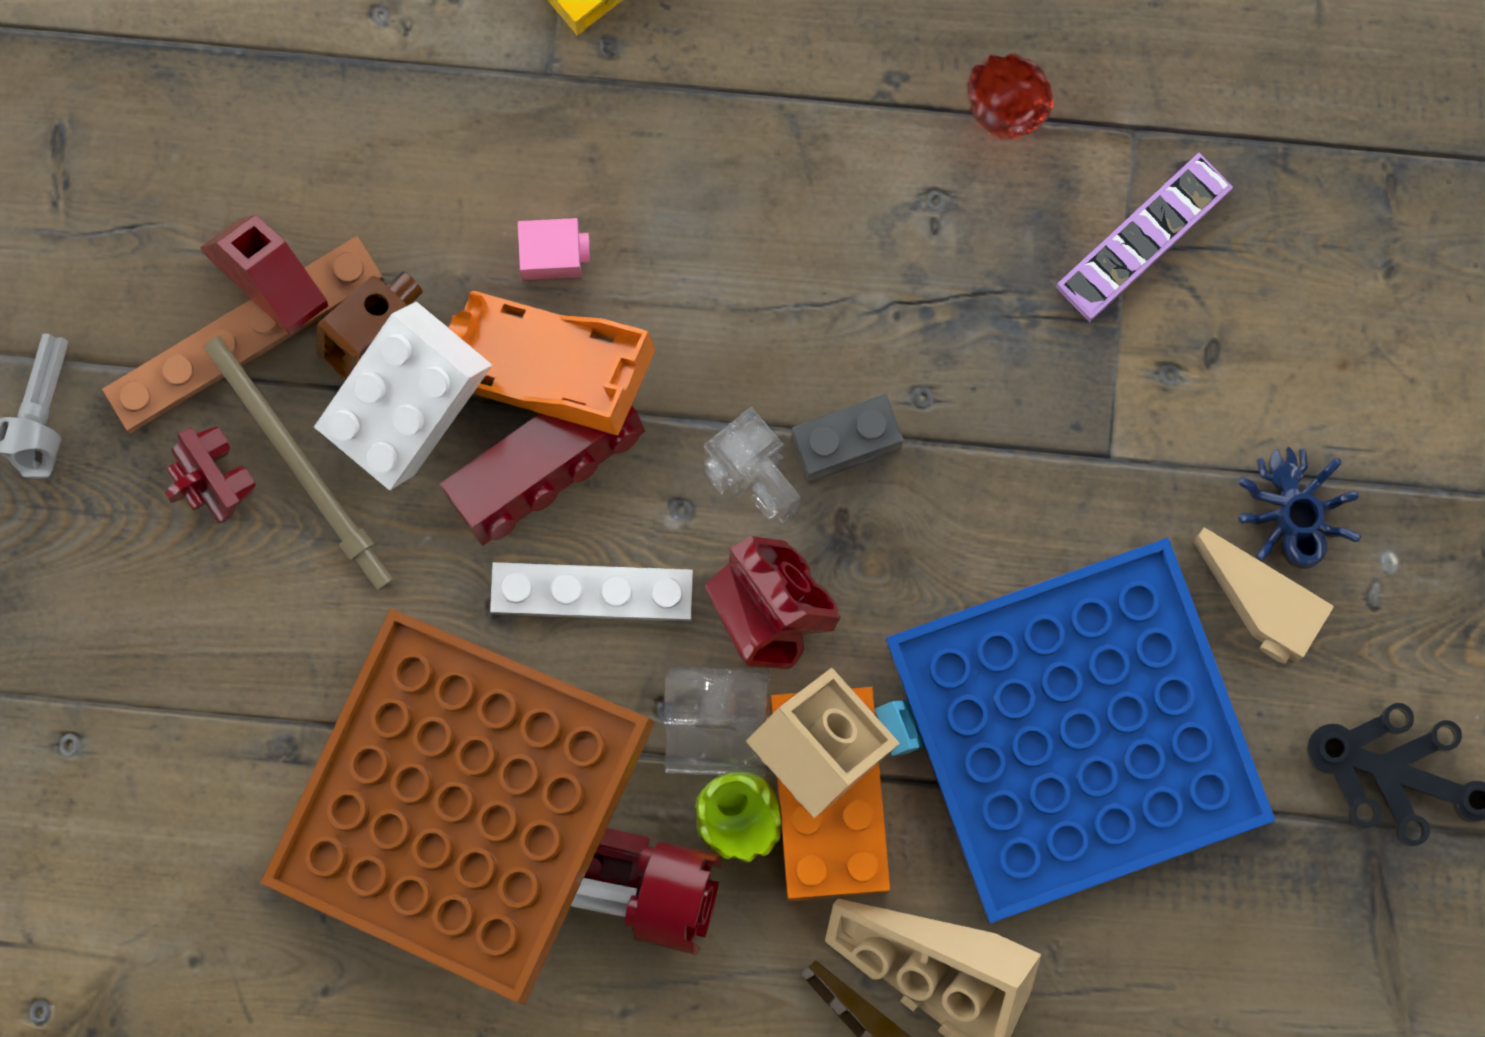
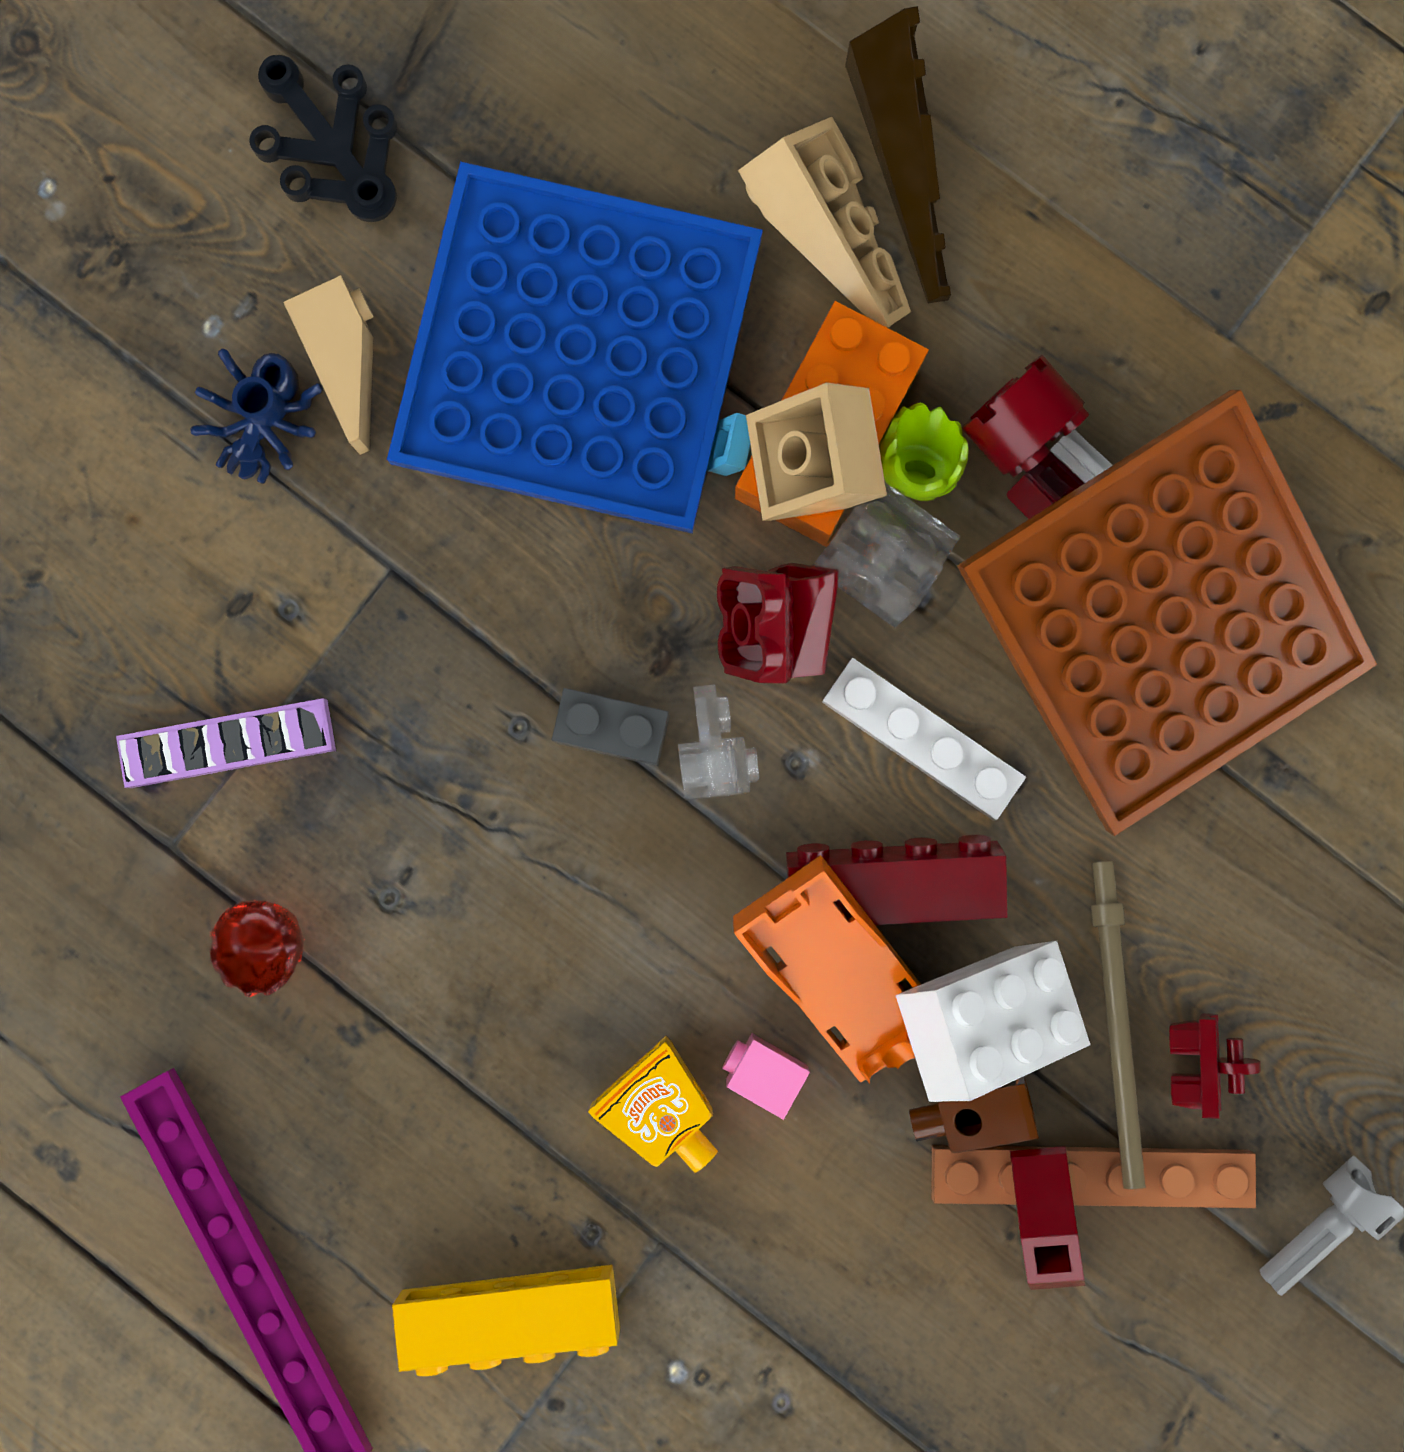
camera: 145 degrees left, 5 degrees up
(618, 171) = (658, 1109): none -> yellow torso

